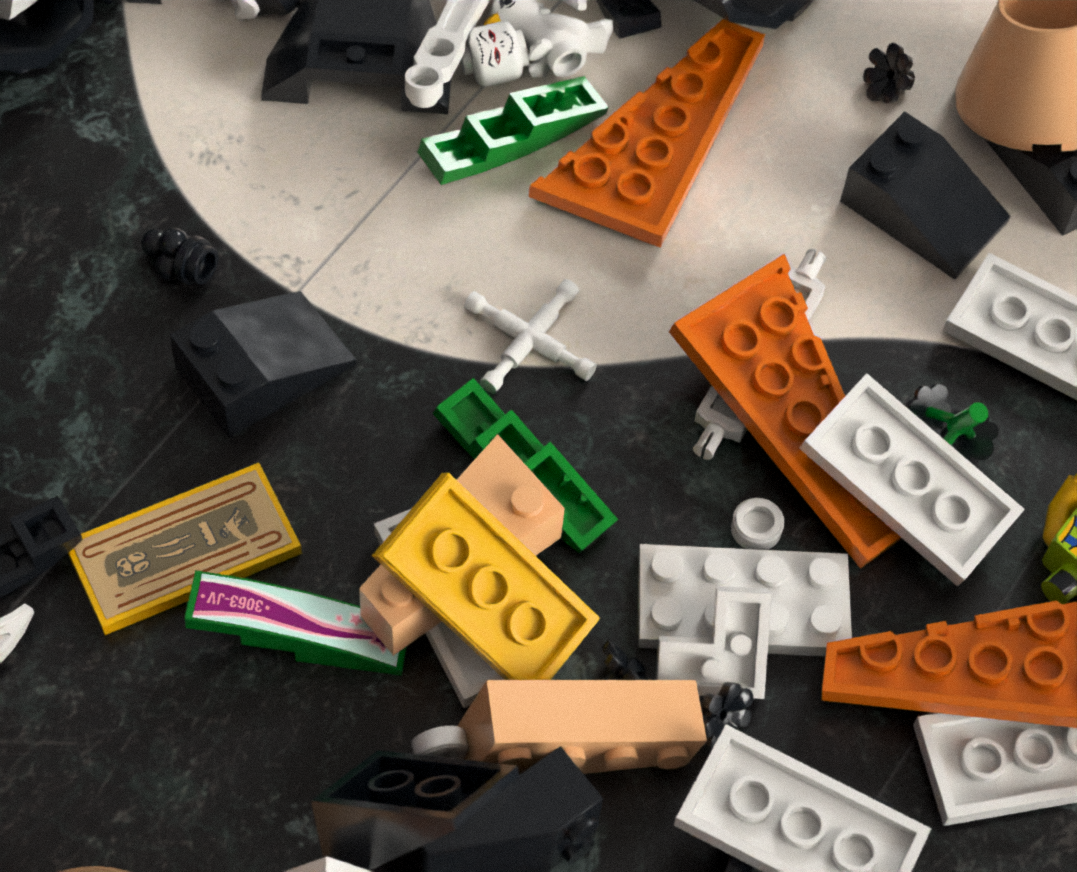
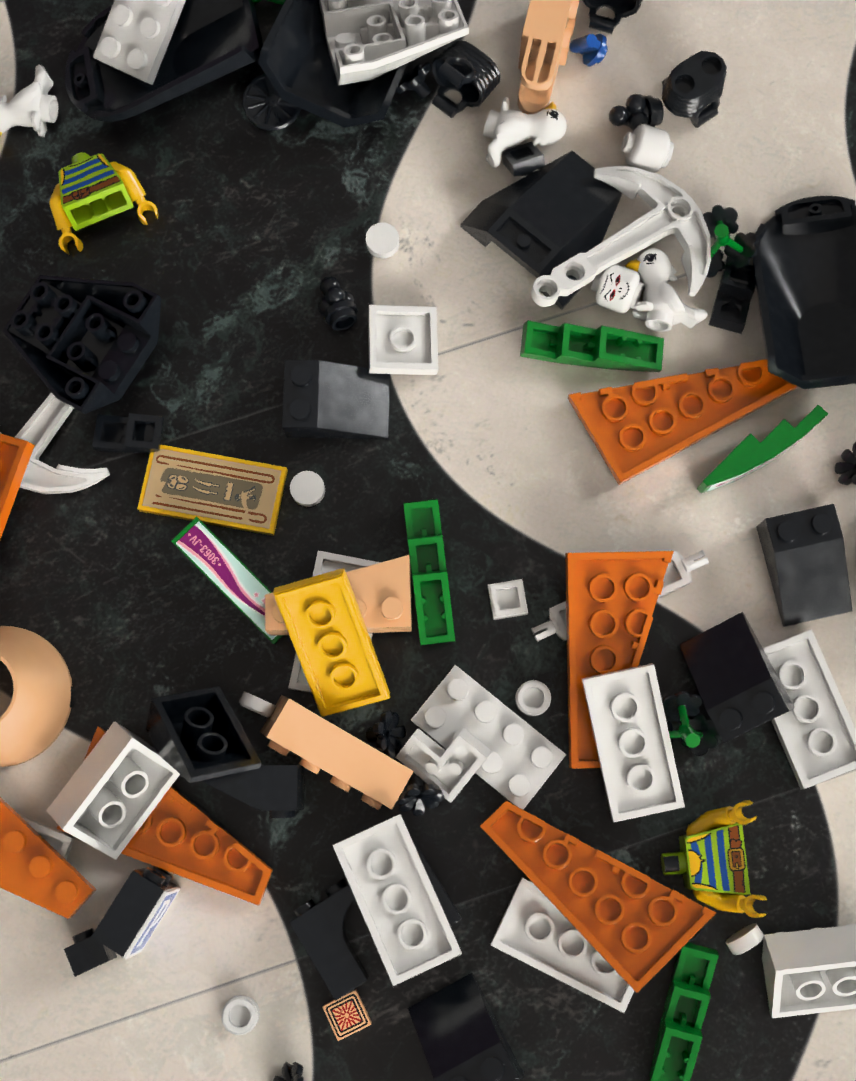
camera: 45 degrees right, 20 degrees up
(180, 163) = (382, 240): none -> white tile
(291, 243) = (402, 340): none -> white plate
(303, 472) = (307, 488): none -> white tile
(530, 336) = (497, 490): white piece -> none
(639, 440) = (507, 599): none -> white tile
(779, 122) = (753, 455): none -> green slope
(959, 341) = (735, 678): none -> black slope

